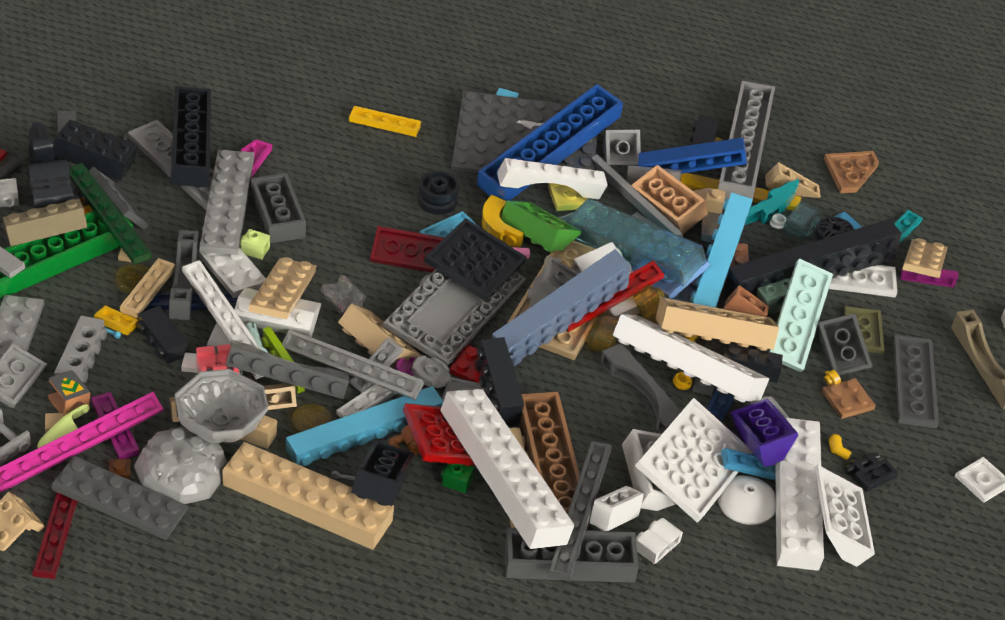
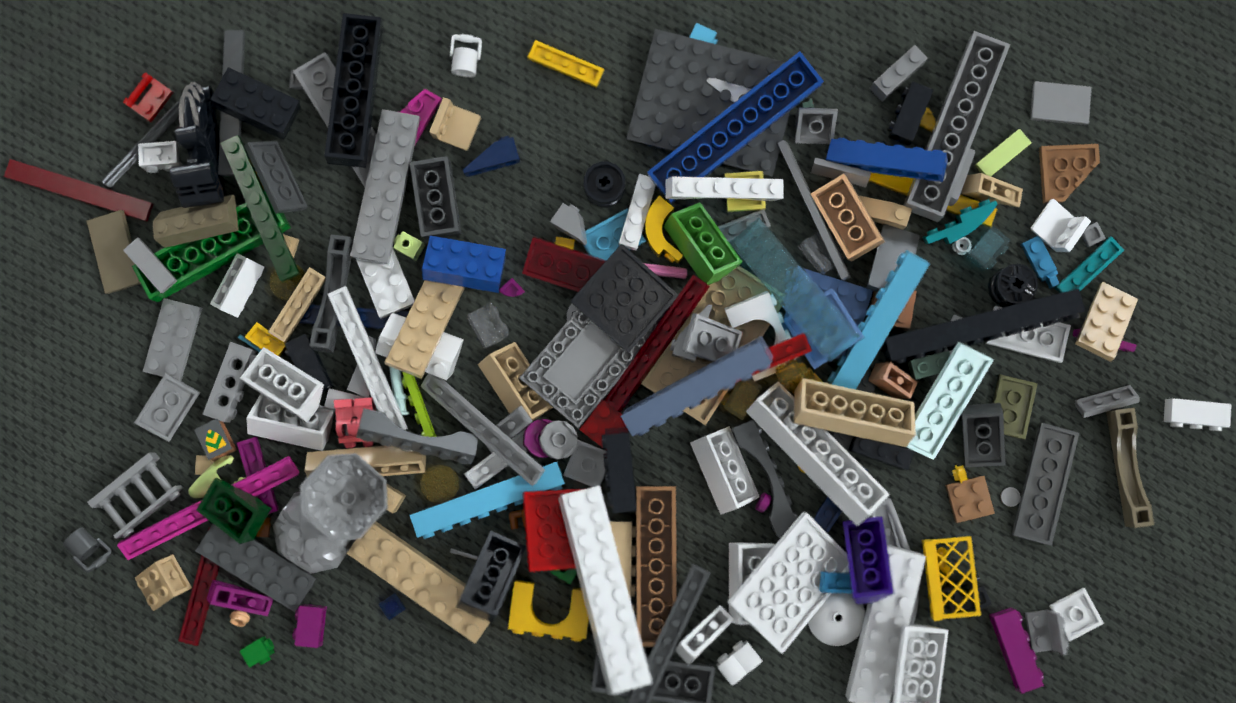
camera: 20 degrees right, 40 degrees up
(84, 277) = (237, 285): none -> white brick
(96, 439) = (233, 511): none -> dark green slope
(100, 525) = (238, 598): none -> magenta slope
(103, 544) = (239, 618): none -> light nougat plate
(127, 571) = (258, 652): none -> green brick
(140, 342) = (284, 384): none -> white slope
(144, 379) = (278, 424): none -> white slope
(185, 544) = (310, 625): none -> magenta brick
(274, 525) = (392, 606): none -> clear blue plate
(281, 161) = (454, 125): none -> tan bracket
(291, 118) = (465, 59): none -> white piece
(313, 248) = (463, 264): none -> blue brick
(329, 181) = (498, 155): none -> dark blue slope
(361, 272) = (511, 289): none -> magenta tile
(410, 219) = (570, 222): none -> light grey slope
(425, 522) = (524, 619): none -> yellow arch
(474, 205) = (637, 212): none -> white plate
(515, 291) = (657, 343): none -> dark red plate
(601, 388) = (725, 470): none -> white slope
(647, 411) = (763, 502): none -> magenta tile
(685, 114) = (898, 73): none -> light grey brick
(761, 174) = (962, 177): none -> light grey tile
(799, 159) = (1003, 153): none -> yellowish green tile
(831, 131) = (1060, 103): none -> light grey tile
(834, 453) = (933, 578): none -> yellow fence
(857, 203) = (1059, 227): none -> white bracket
(886, 395) = (1010, 497): none -> light grey piece
(891, 210) = (1092, 234): none -> light grey tile
(935, 507) = (1016, 650): none -> magenta brick
(943, 318) = (1107, 401): none -> light grey tile
(962, 489) = (1046, 631): none -> light grey bracket

